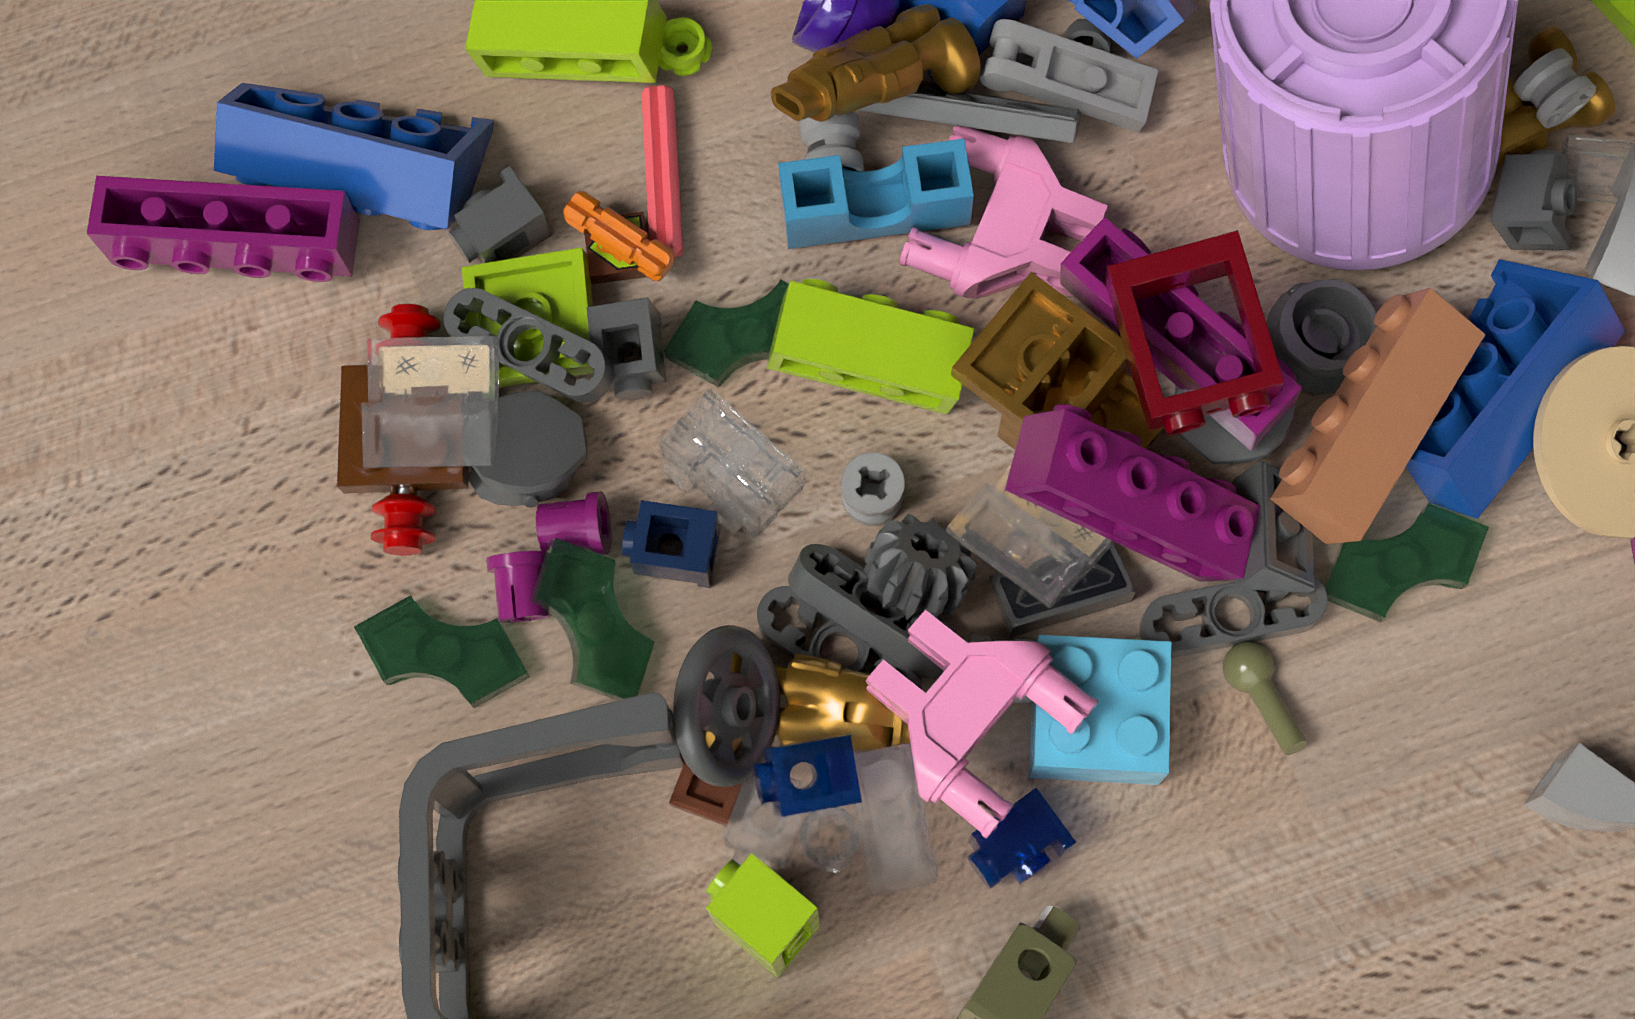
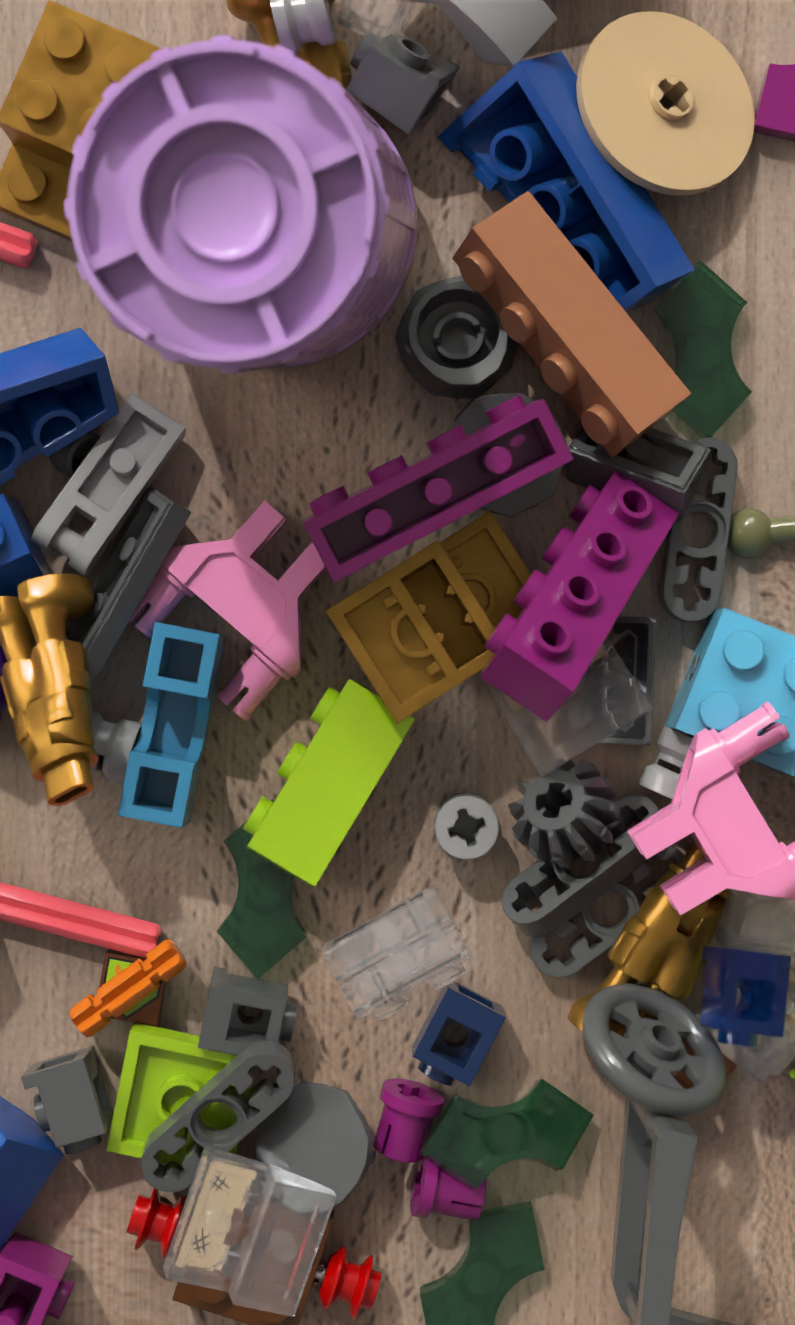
camera: 75 degrees left, 15 degrees up
(1179, 269) = (392, 482): dark red window -> none

